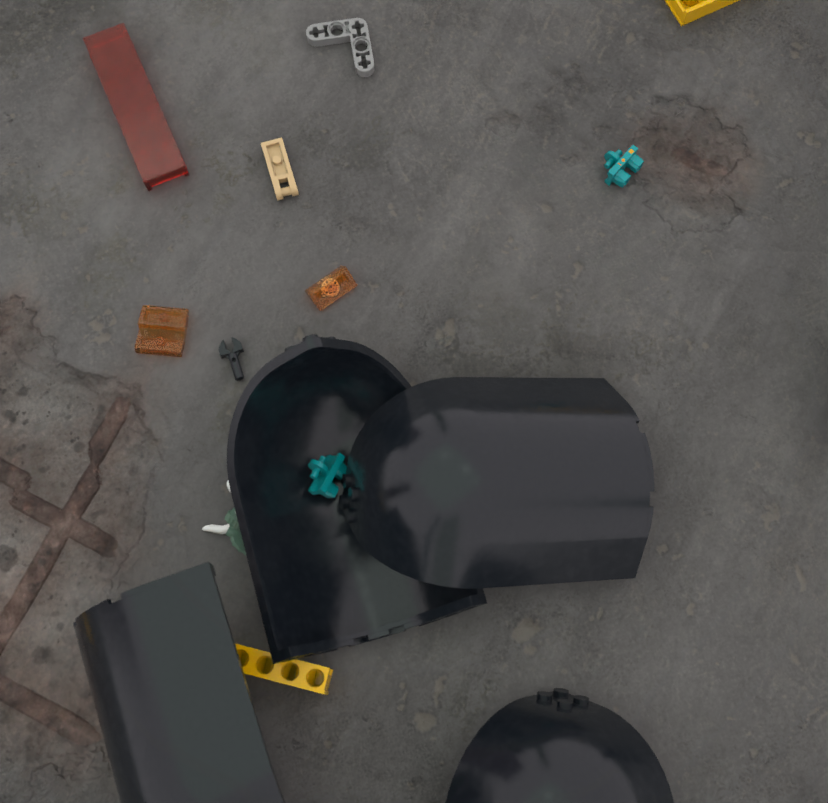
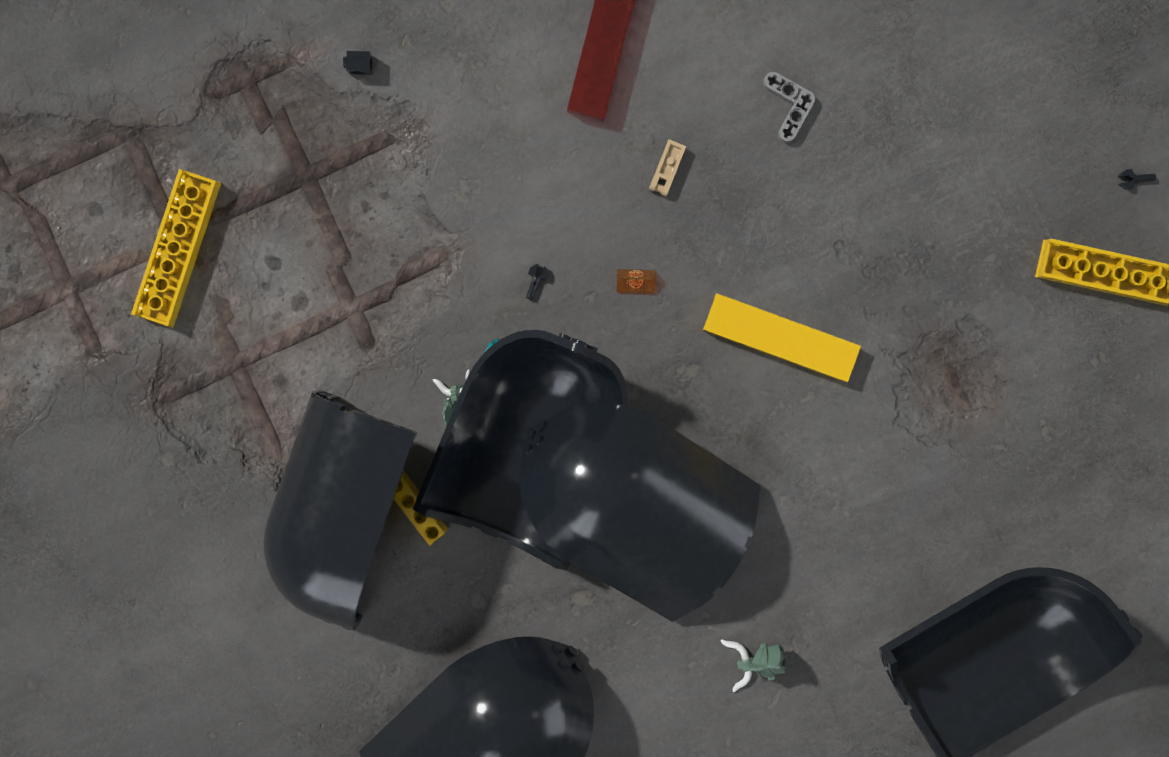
camera: 40 degrees right, 15 degrees up
(162, 331) = (503, 225): clear orange slope -> none
(324, 472) = (534, 408): teal hips -> none
(507, 234) = (781, 338): none -> yellow tile
(617, 173) = (890, 354): teal hips -> none
(760, 539) = (766, 662): none -> sand green helmet

